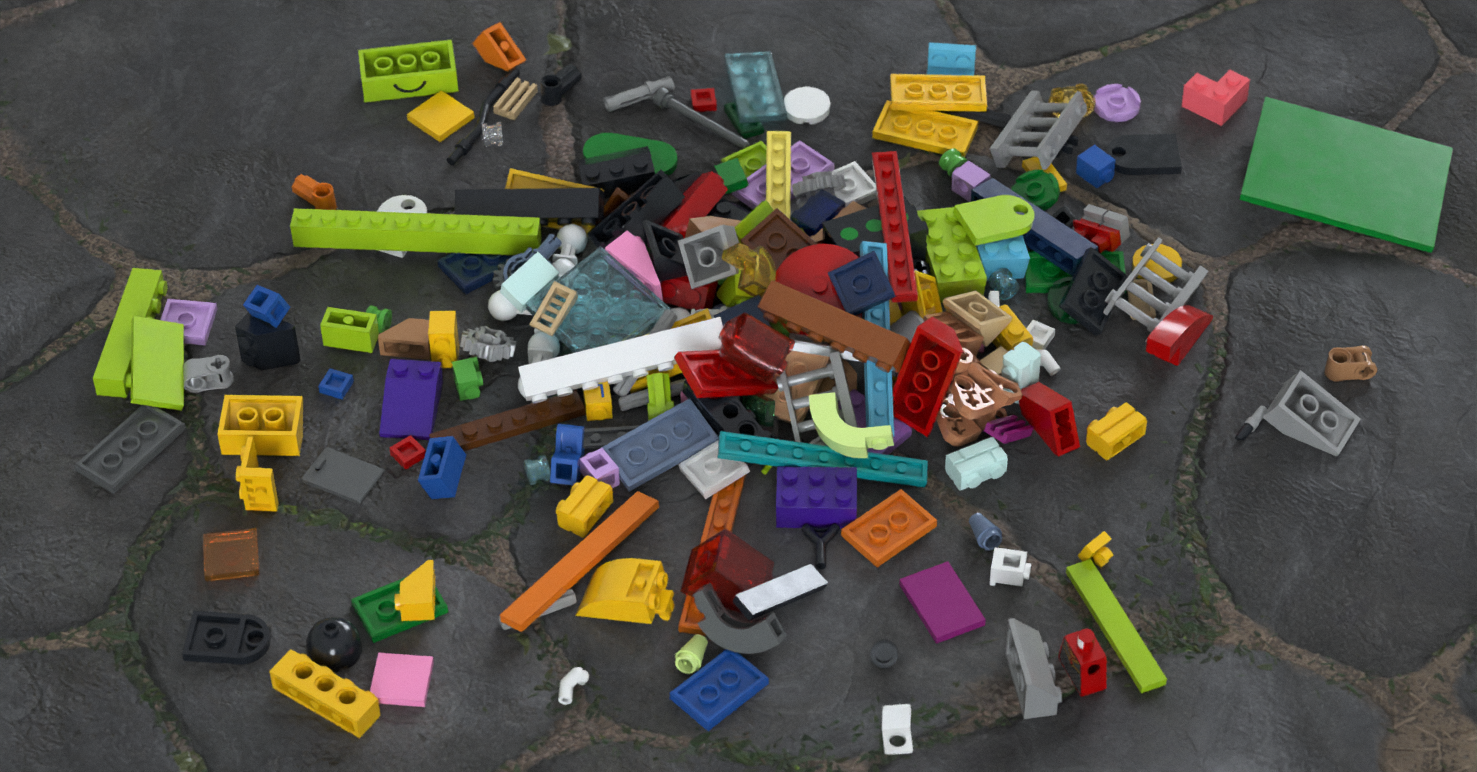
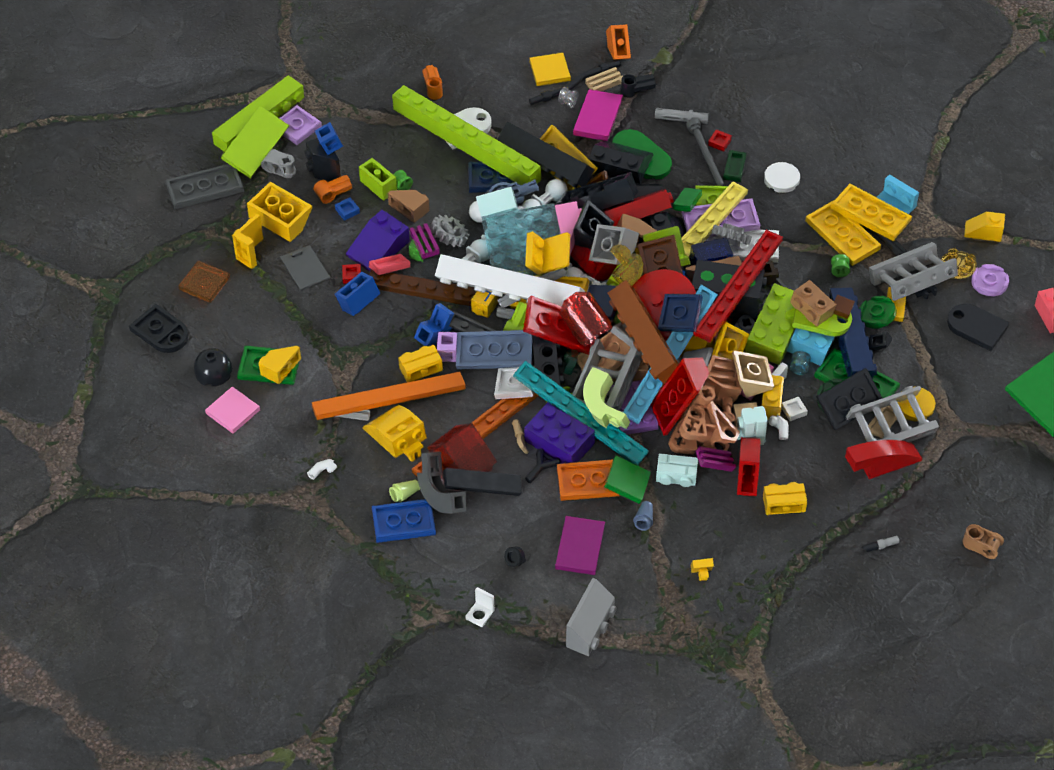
camera: 35 degrees right, 5 degrees up
(298, 371) = (328, 190): none -> orange piece
(325, 693) = (183, 393): yellow brick -> none
(408, 71) = (550, 29): lime brick -> none
(443, 337) = (423, 210): yellow brick -> none
(448, 417) = (389, 264): none -> coral tile
(477, 364) = (421, 230): none -> magenta tile
(537, 469) = (411, 324): clear light blue wheel -> none
(545, 137) = (597, 115): none -> dark pink tile
(562, 291) = (496, 220): tan slope -> none
(646, 300) = (547, 253): none -> yellow bracket
(755, 87) = (757, 148): clear light blue plate -> none
(766, 521) = (519, 434): none -> tan piece
(934, 502) = (627, 479): none -> green tile
(967, 178) = (839, 279): lavender brick -> none
(983, 206) = (813, 303): none -> medium nougat brick
(1009, 567) = (637, 547): white brick -> none
(1012, 196) = (843, 306): none -> reddish brown tile
(1067, 50) = (985, 226): none -> yellow slope
(1083, 652) = (628, 627): red torso -> none
(1095, 166) = (932, 316): blue brick -> none
(1103, 228) = (894, 361): hips -> none
(1116, 626) = (673, 623): lime tile -> none
(1311, 415) = (923, 561): light grey slope -> none

